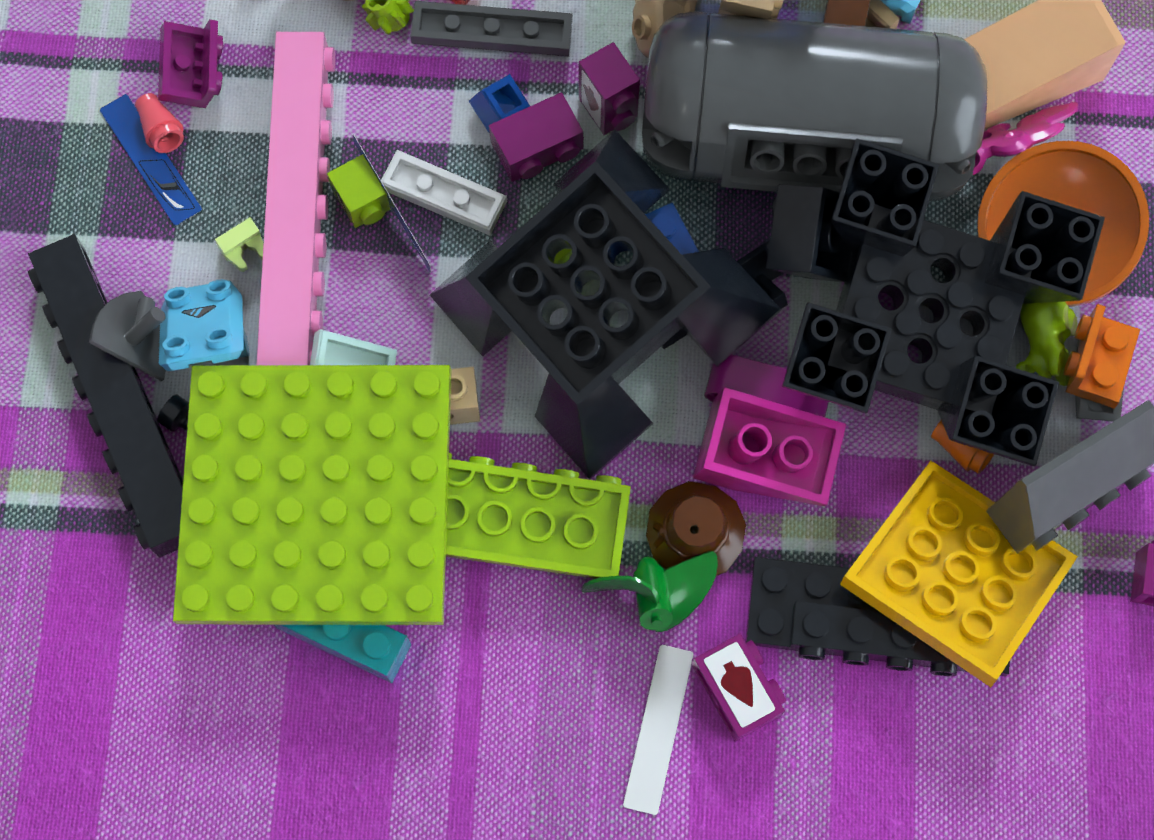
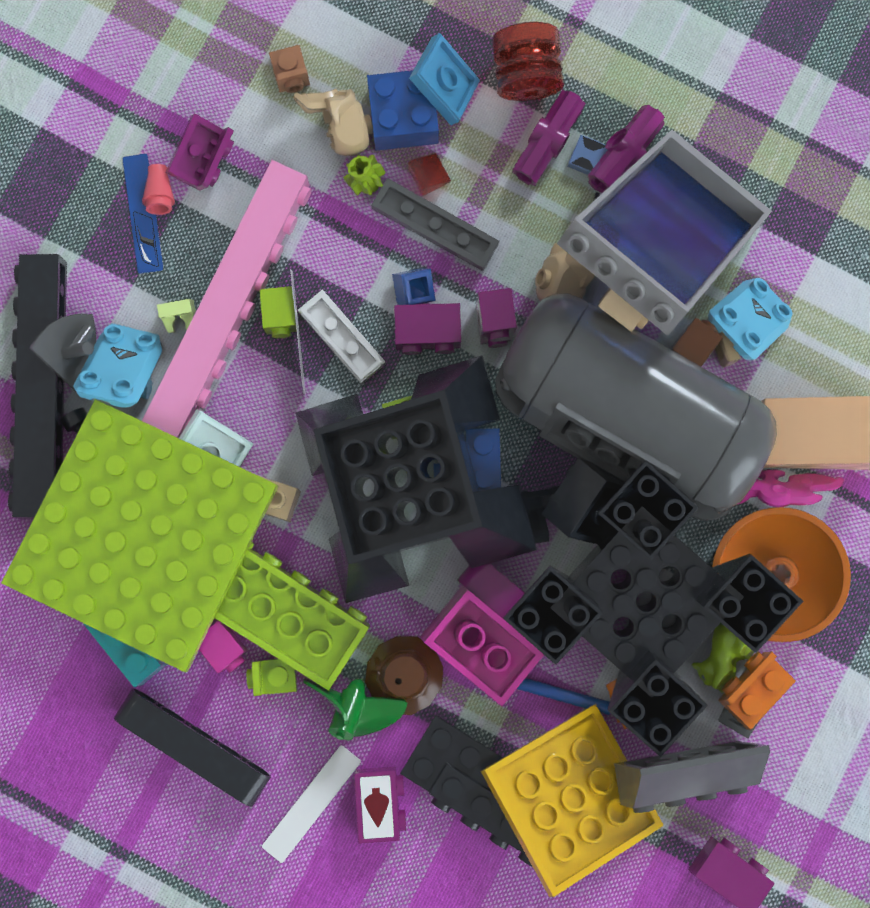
camera: 20 degrees right, 10 degrees up
(470, 591) = (223, 648): none -> dark pink brick
(486, 722) = (192, 747): none -> black beam
(543, 600) = (271, 677): none -> lime bracket
(888, 470) = (563, 695): none -> blue bar

